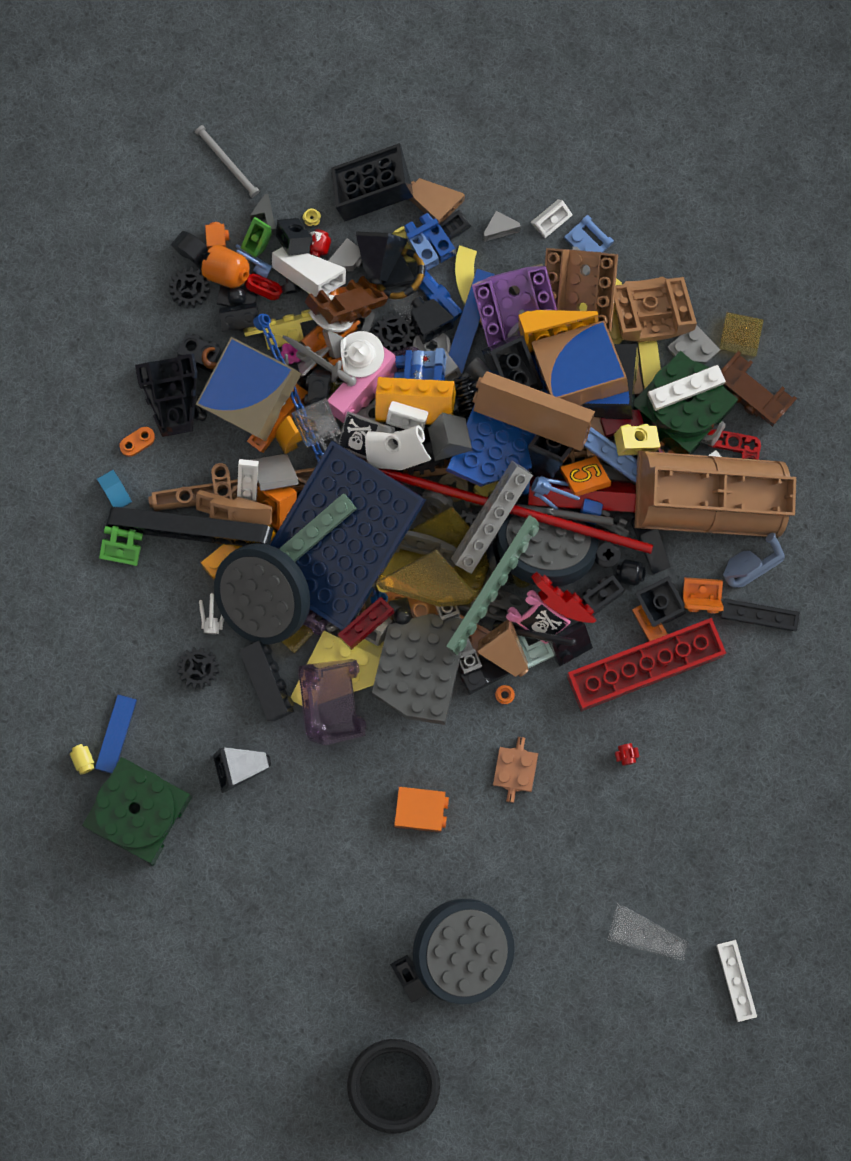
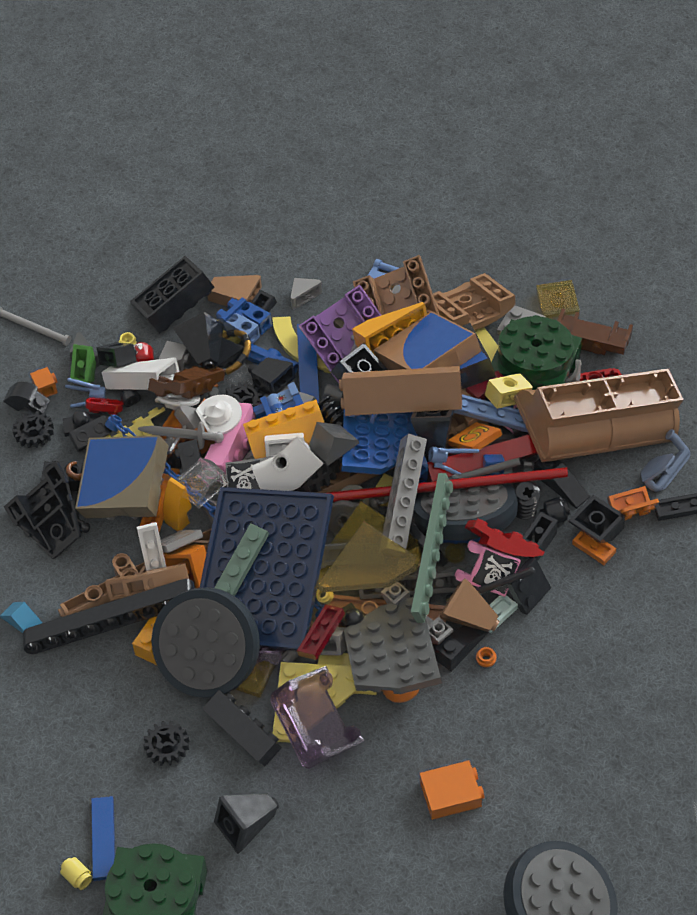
camera: 15 degrees left, 25 degrees down
(120, 551) = (47, 667): bright green plate -> none
(138, 443) = (29, 569): orange plate -> none
(210, 624) = (165, 700): white plant -> none
(225, 267) = (62, 397): orange cylinder -> none
(515, 769) = (529, 719): nougat plate -> none
(551, 218) = (346, 273): white slope -> none
(627, 754) = (632, 663): red gear -> none
(646, 664) = (609, 579): red brick -> none
(686, 387) = (532, 334): white plate -> none

